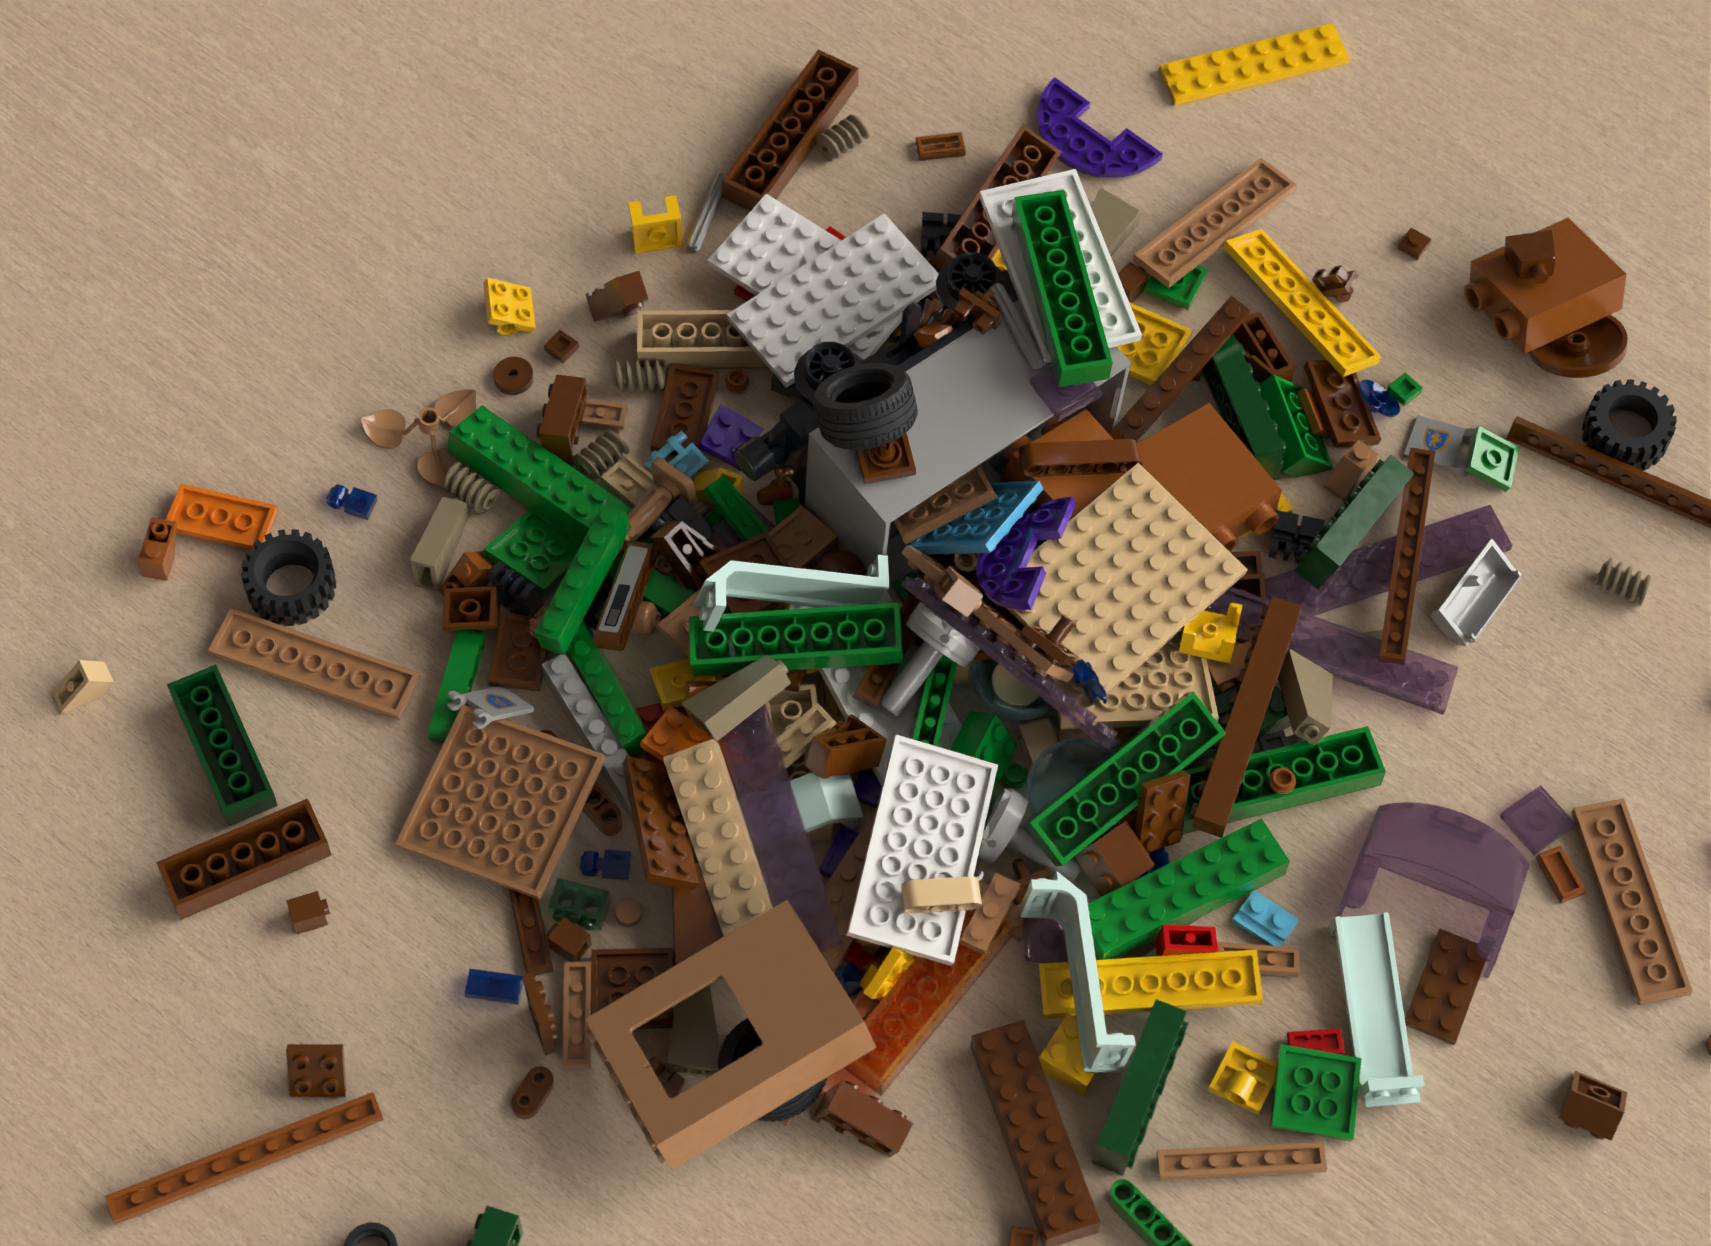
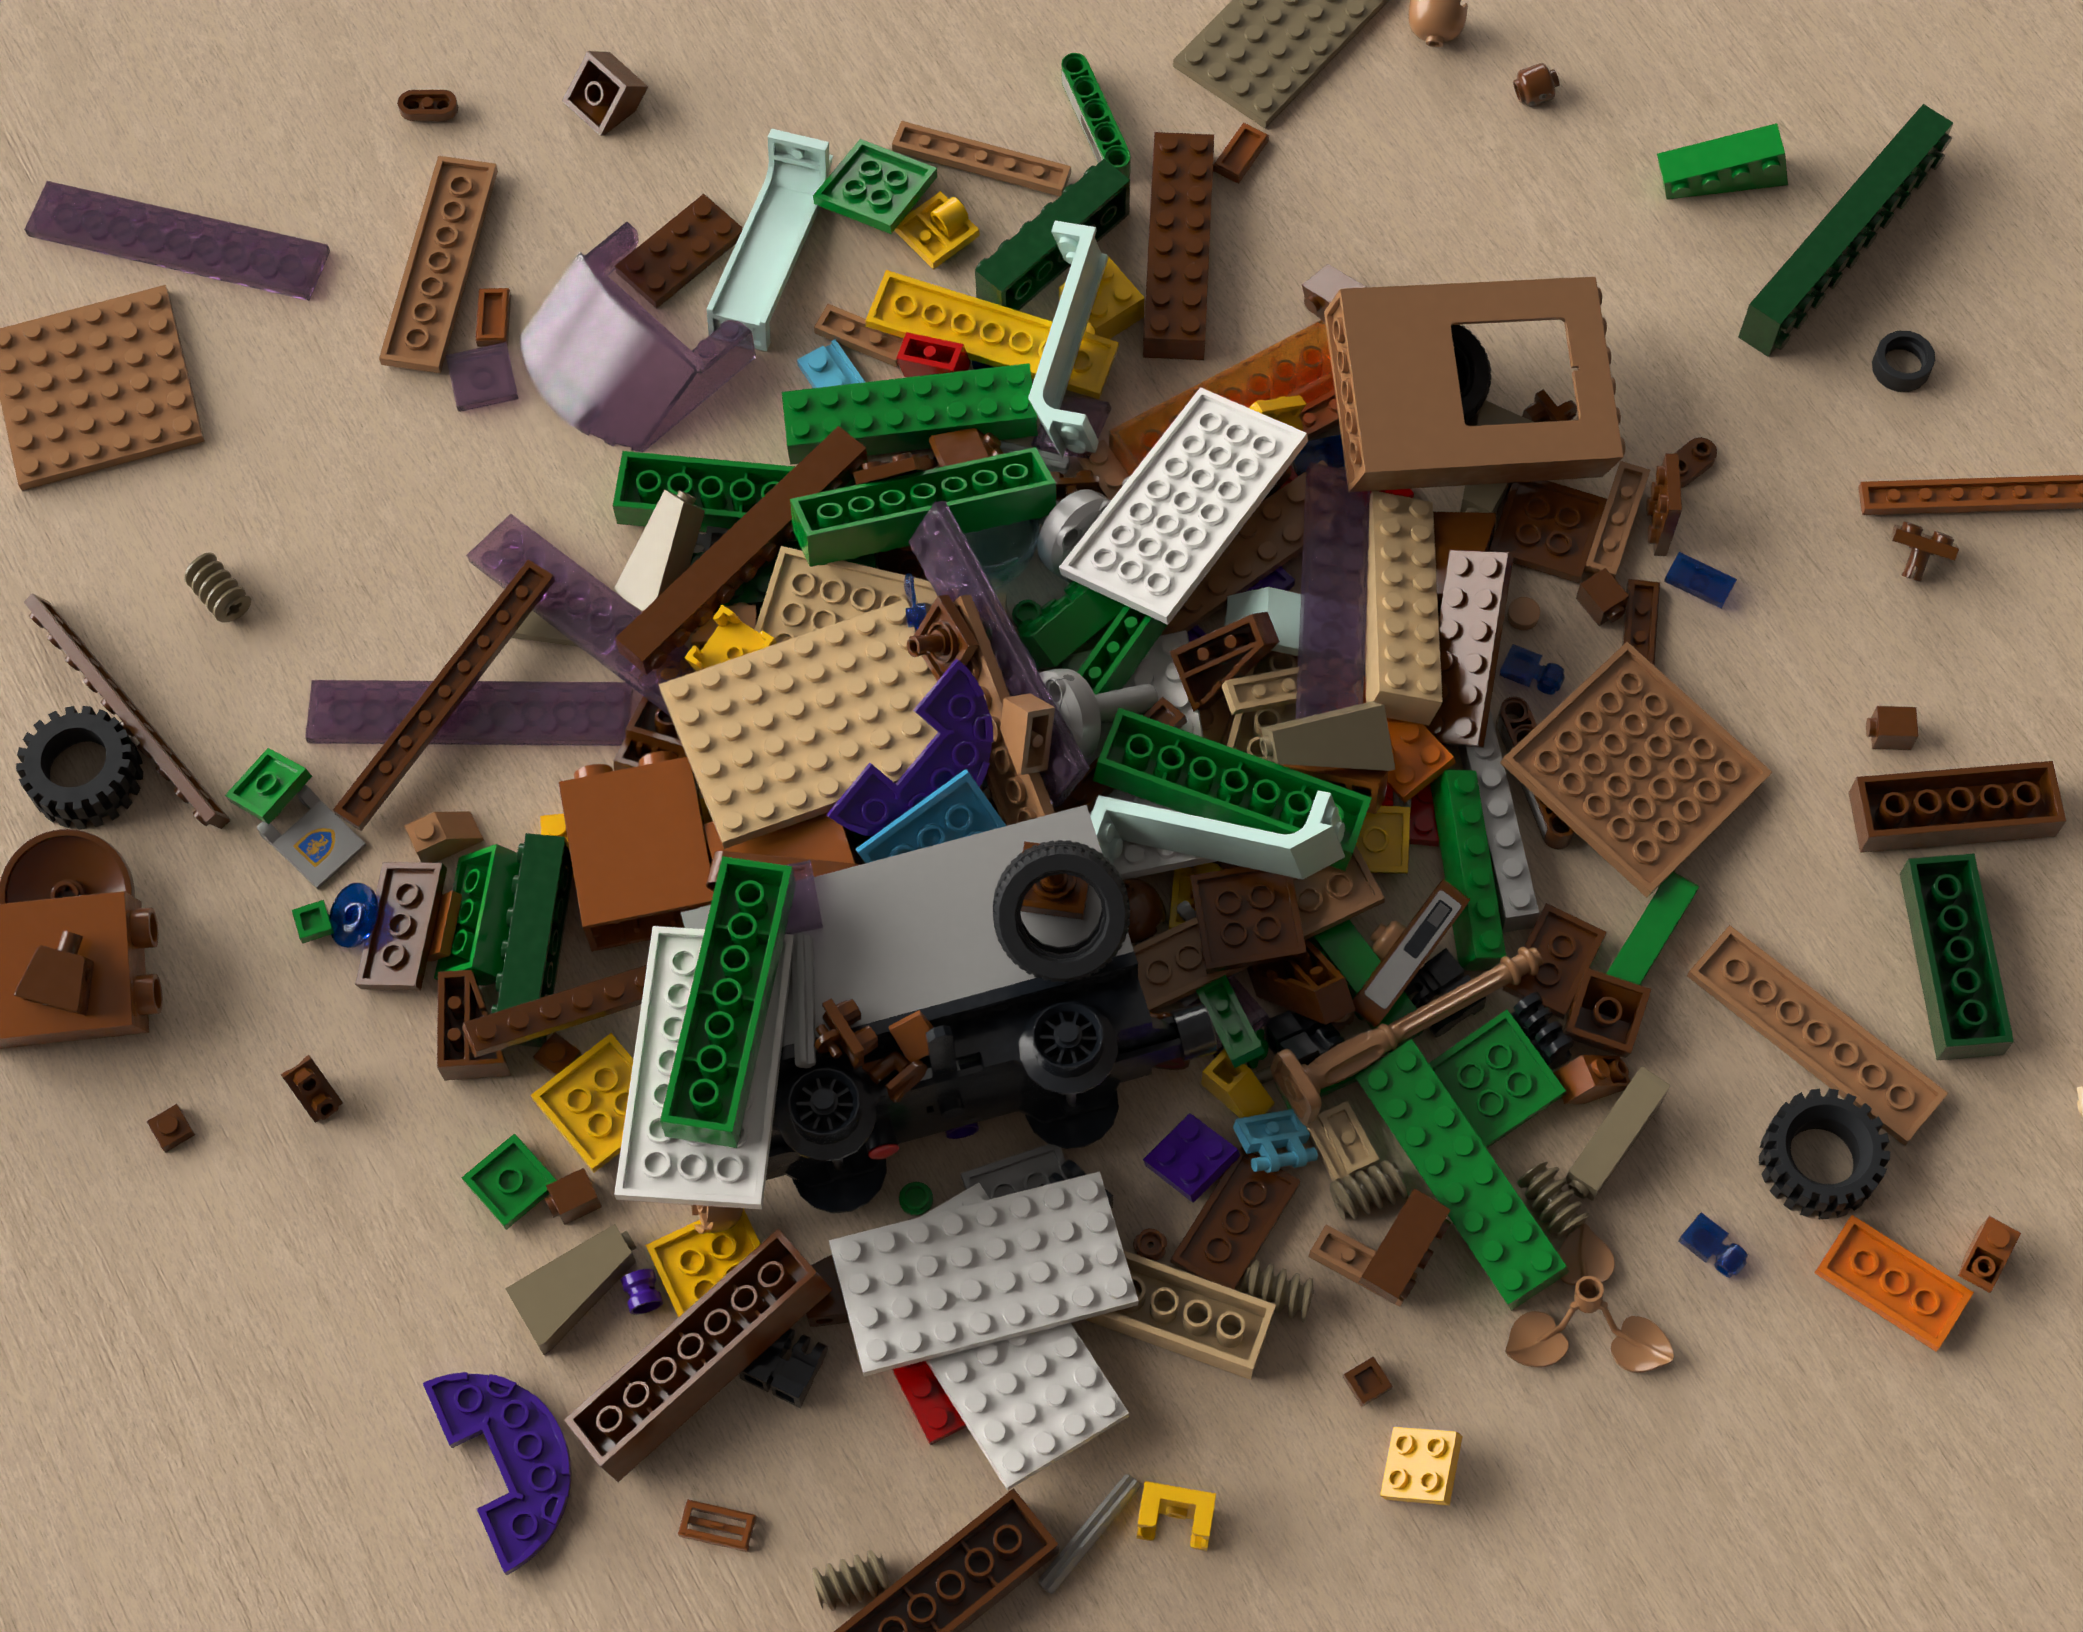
camera: 155 degrees left, 5 degrees up
(490, 704) = (1609, 888): light grey flag -> none
(517, 384) = (1442, 1380): reddish brown piece -> none
(582, 898) = (1573, 639): clear green brick -> none
(583, 579) = (1459, 975): green brick -> none
(620, 296) = (1268, 1402): reddish brown wedge -> none
(941, 894) = (1188, 439): tan beam -> none
(991, 914) = (1131, 443): medium nougat plate -> none
(1214, 222) = (413, 1241): medium nougat plate -> none
(1253, 64) = (210, 1499): yellow plate -> none
(1282, 781) = (743, 471): dark orange plate -> none
(1287, 531) = (549, 766): black legs -> none
(1302, 302) = (371, 1080): yellow plate -> none
(1321, 1040) = (848, 237): red plate -> none
(1352, 521) = (486, 739): dark green brick -> none
(1476, 595) = (392, 628): light grey container -> none

